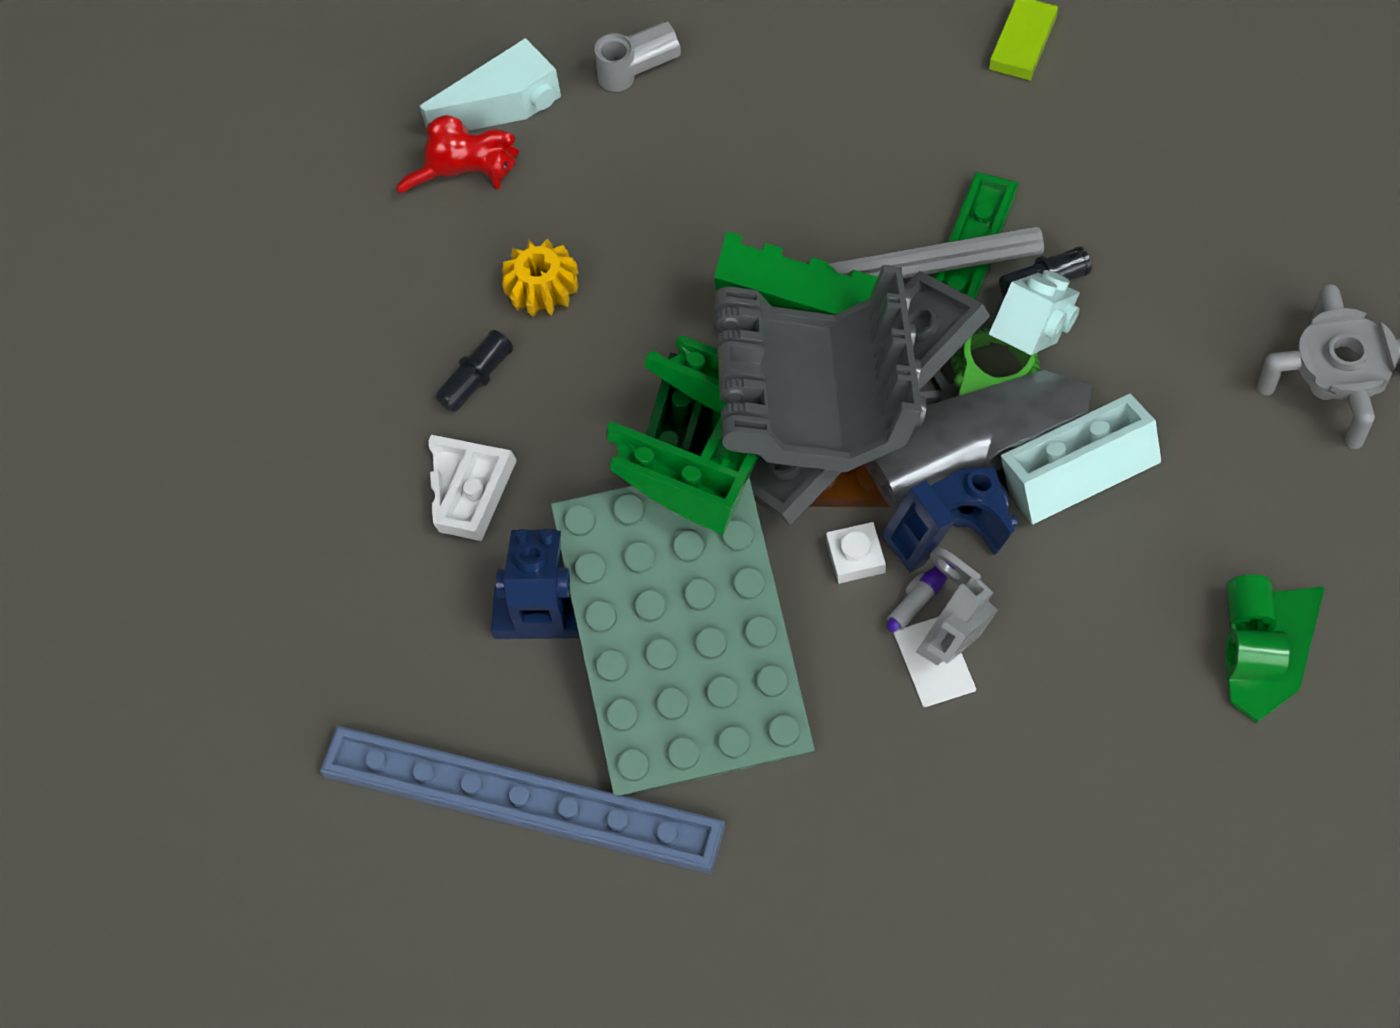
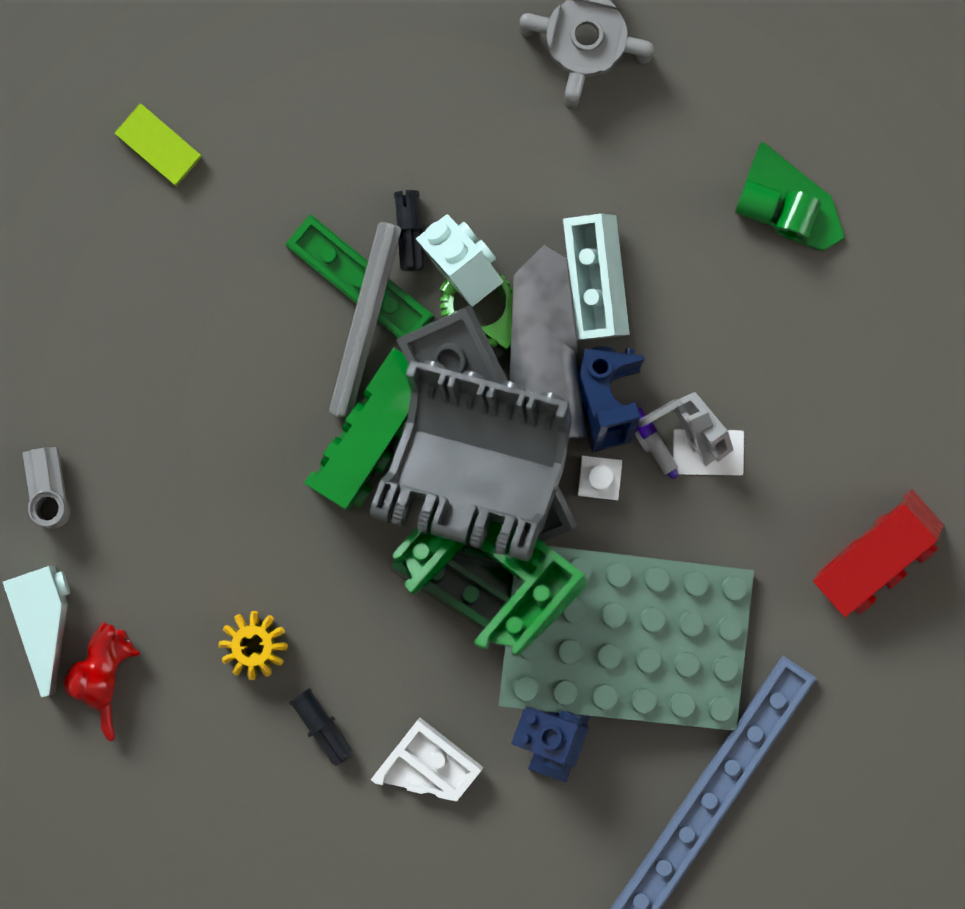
camera: 75 degrees left, 25 degrees up
(895, 884) = (880, 555): none -> red wedge

